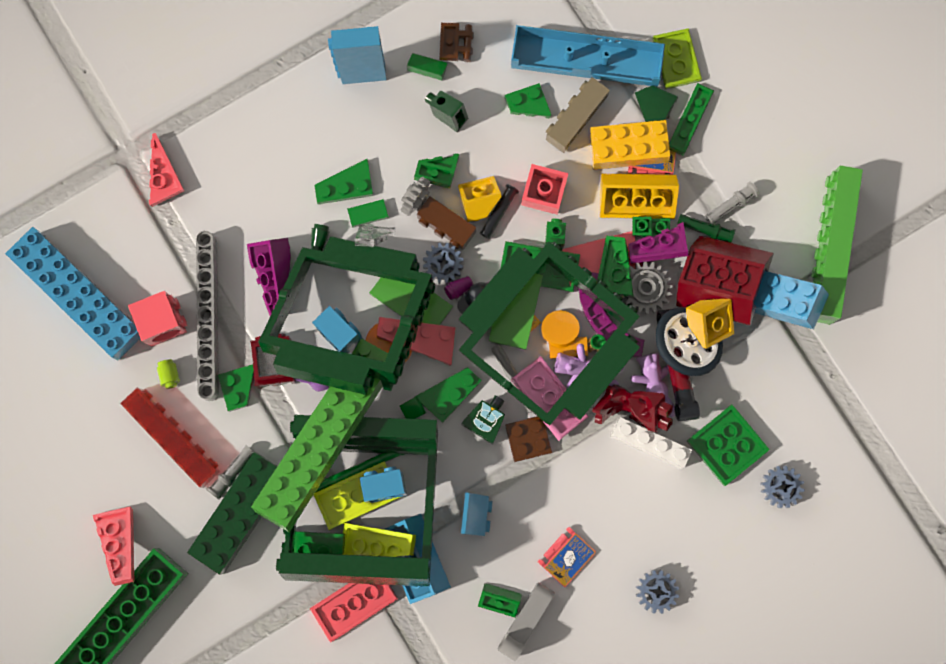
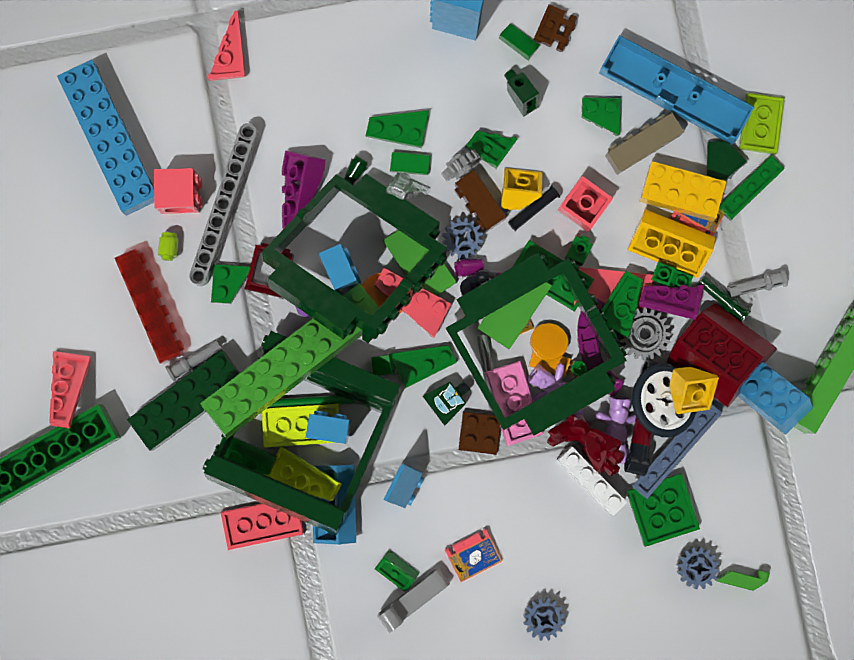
camera: 15 degrees right, 5 degrees up
(718, 385) = (675, 452): none -> sand blue plate
(830, 482) = (744, 581): none -> bright green piece

